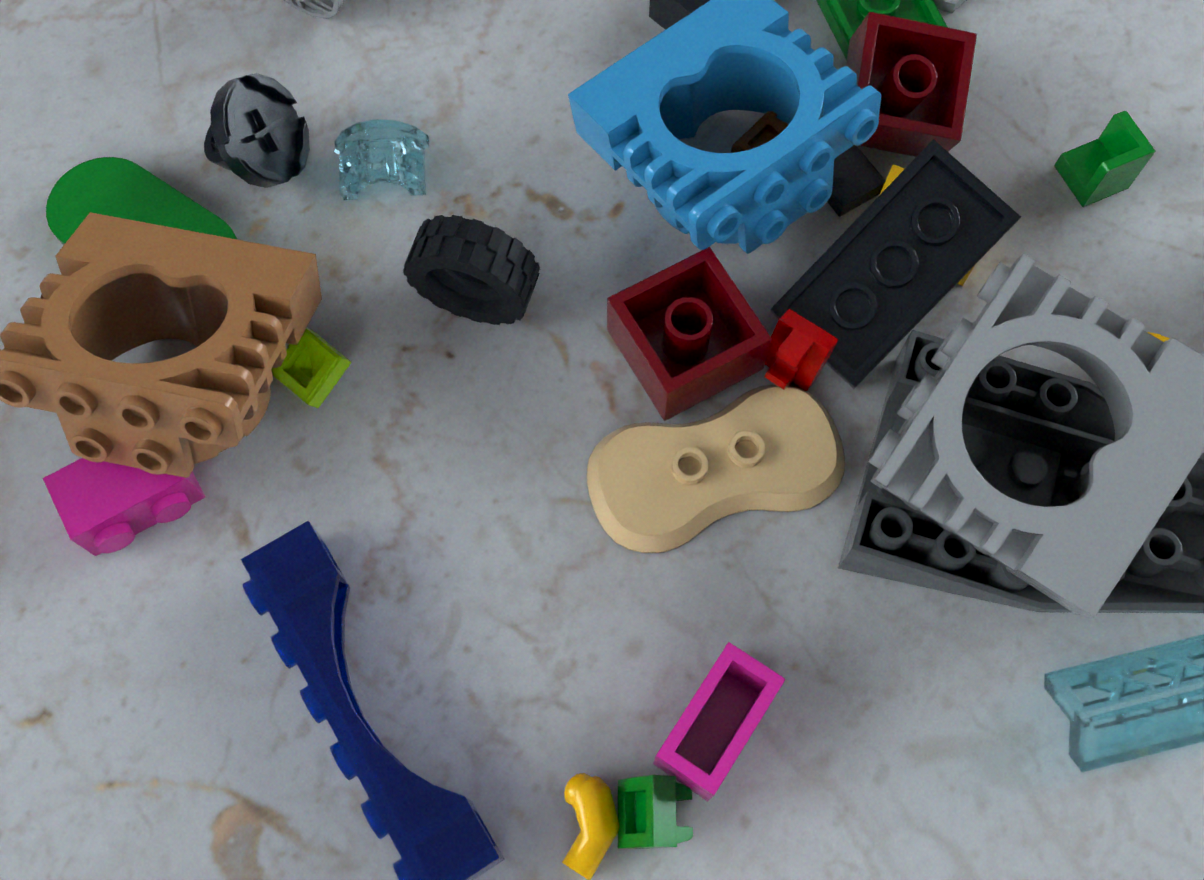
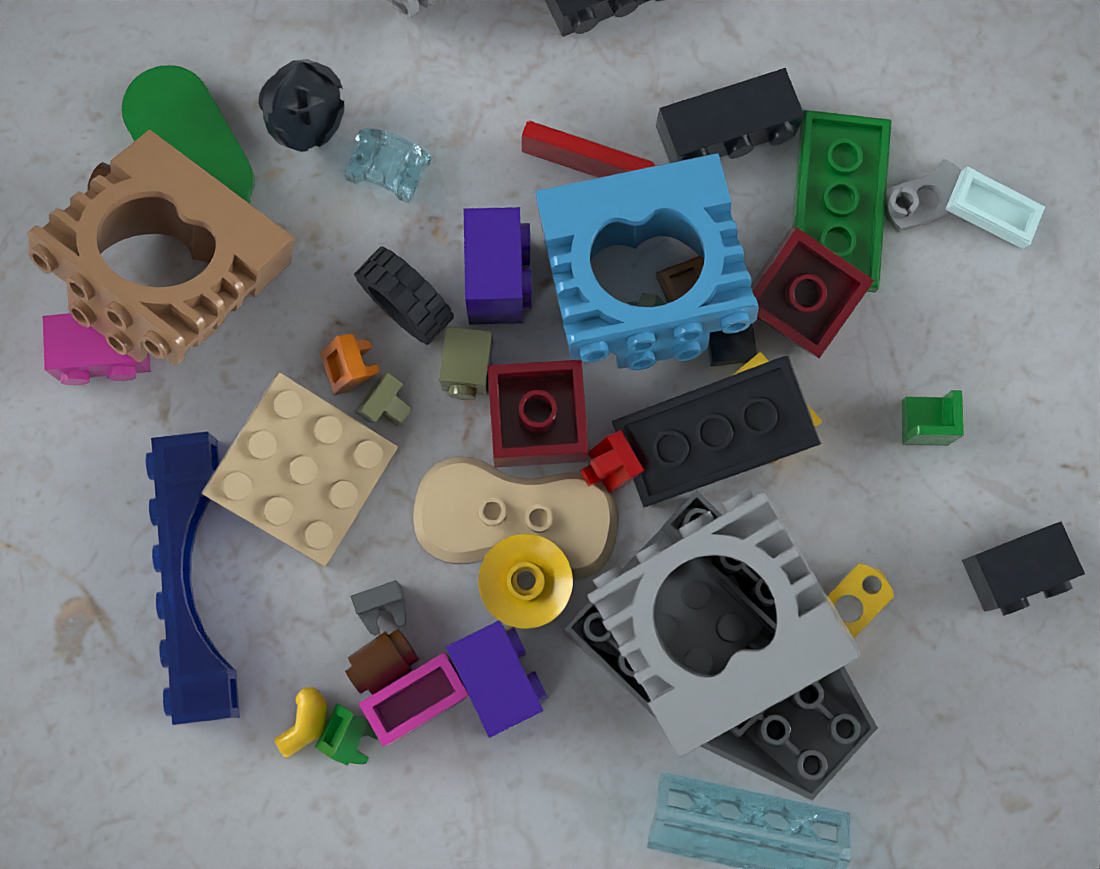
camera: 20 degrees right, 10 degrees up
(311, 368) = (263, 312): lime tile -> none
(437, 380) = (345, 365): none -> orange tile
(440, 519) = (300, 469): none -> tan plate
(503, 401) = (383, 401): none -> olive tile
(559, 198) = (493, 261): none -> dark purple brick
(570, 64) = (577, 152): none -> red tile
(575, 318) = (465, 362): none -> olive brick
(614, 620) = (372, 601): none -> dark grey tile
(650, 700) = (381, 662): none -> reddish brown brick
(796, 507) = (505, 596): none -> yellow dish
(811, 644) = (496, 678): none -> dark purple brick

